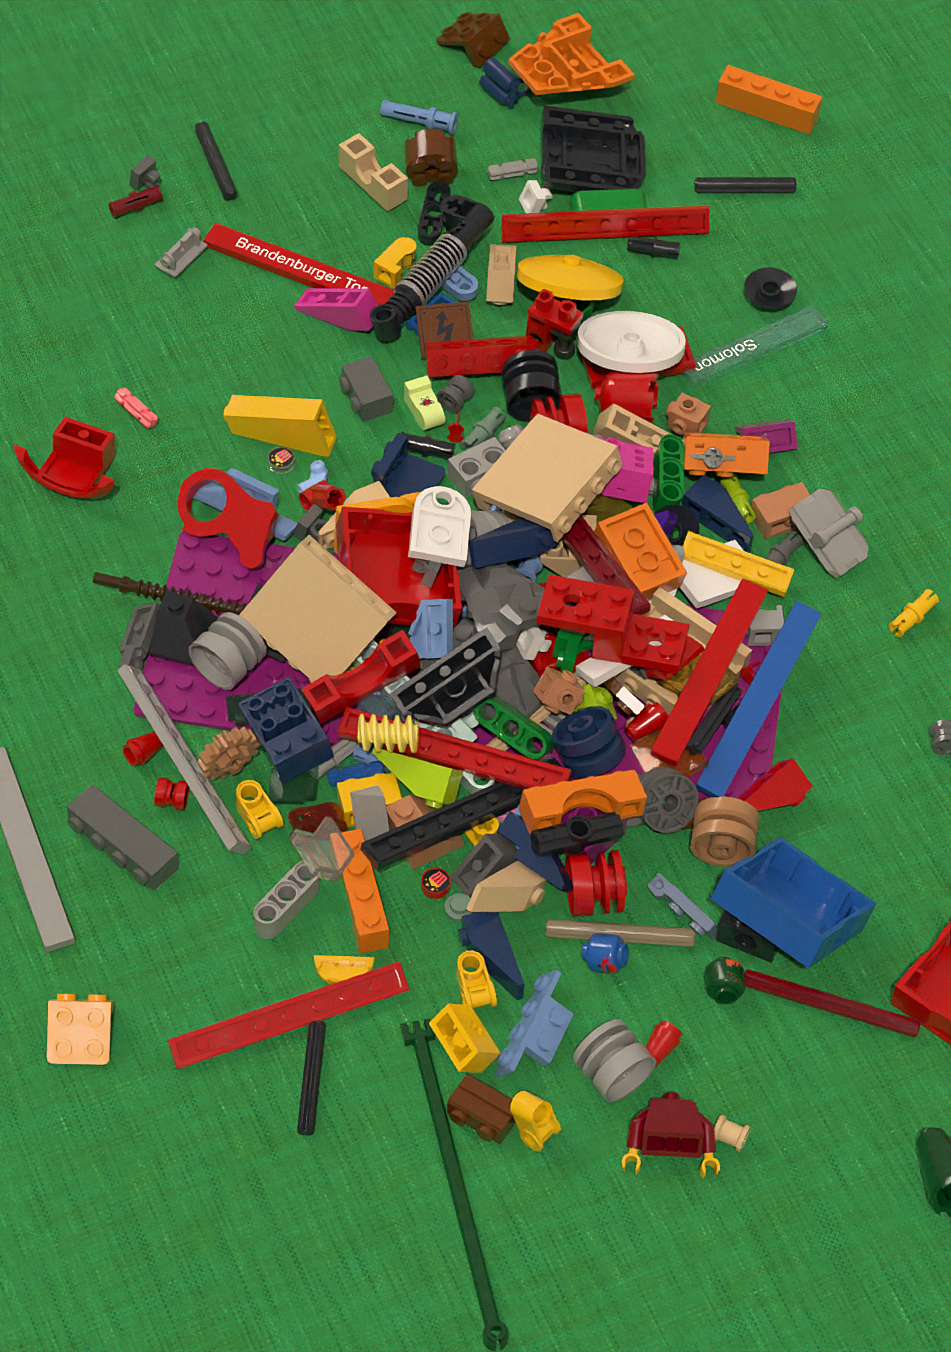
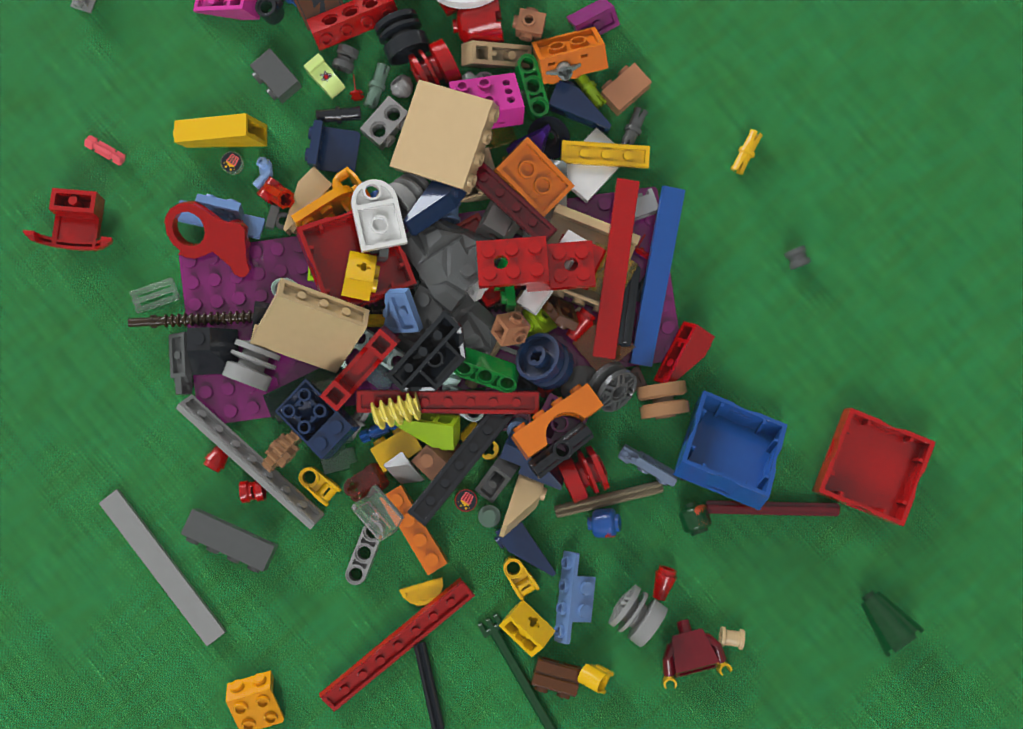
camera: 15 degrees left, 30 degrees up
(135, 560) = (136, 301): none -> clear tile
(398, 577) = (360, 276): none -> yellow brick
(831, 531) = (667, 101): light grey shield -> none

